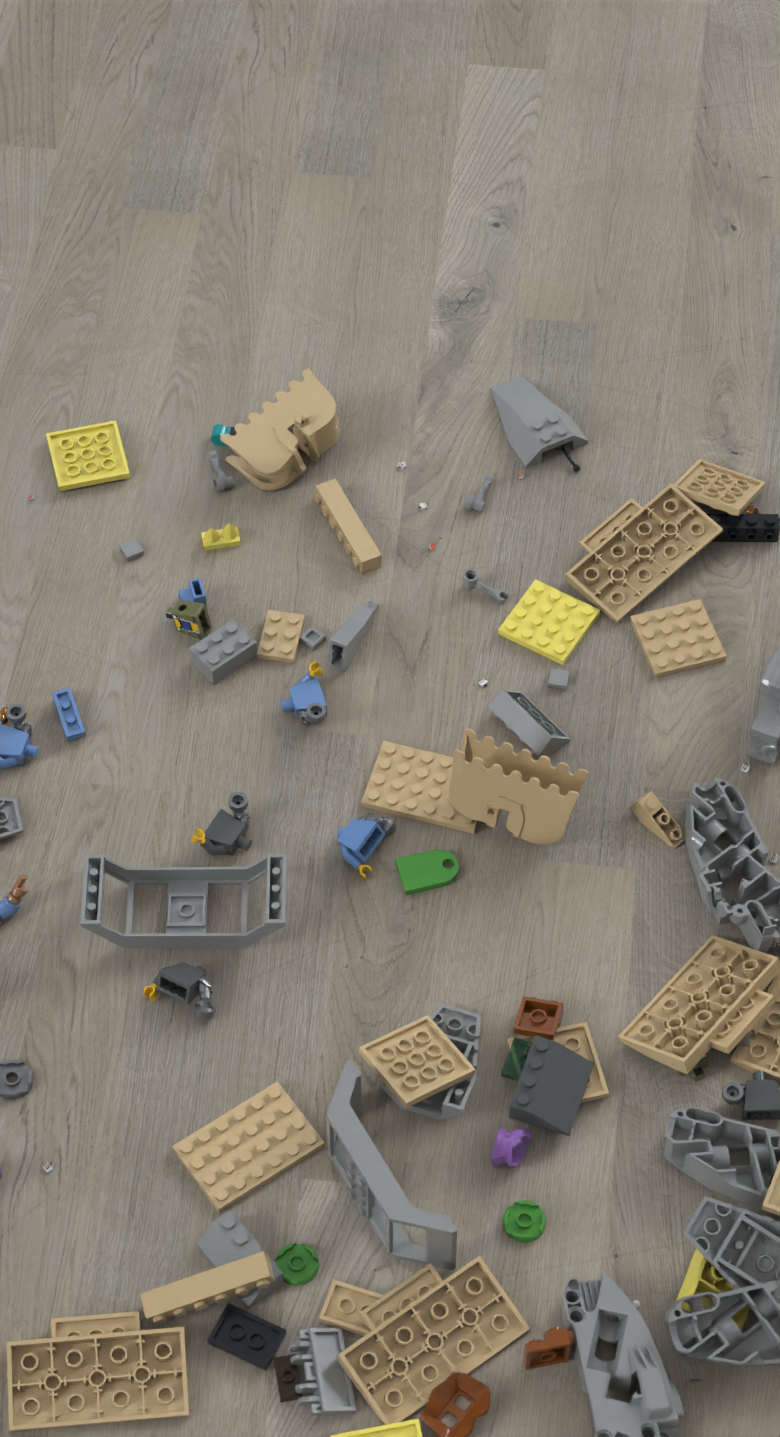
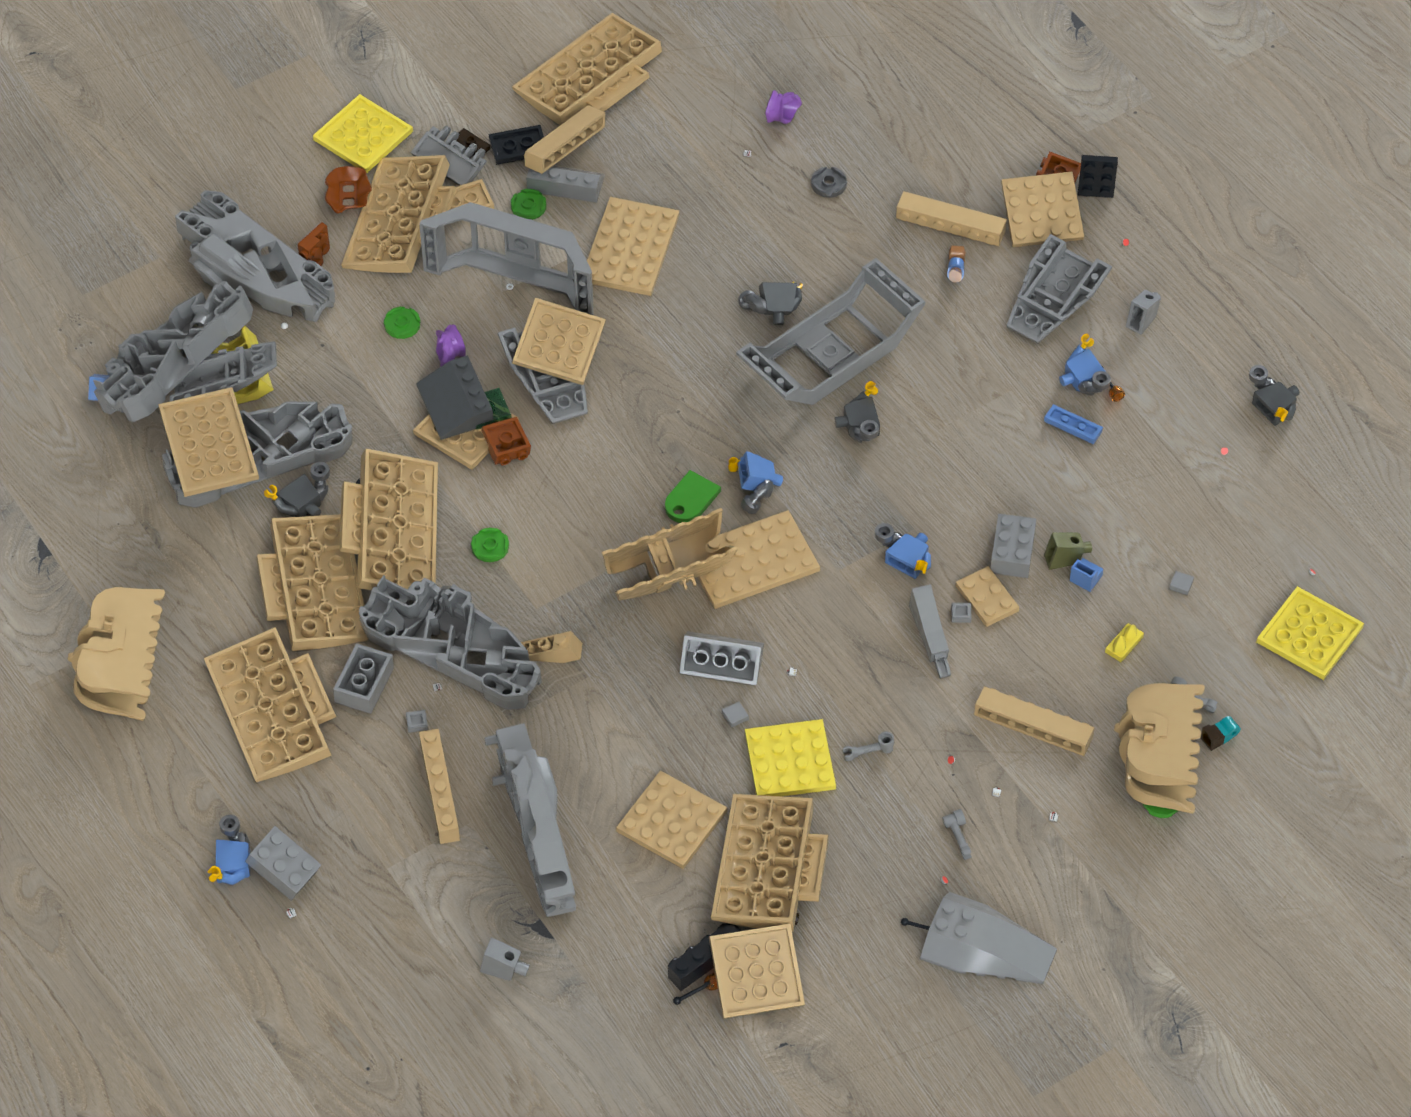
camera: 140 degrees right, 0 degrees up
(629, 947) = (490, 545): none -> bright green tile

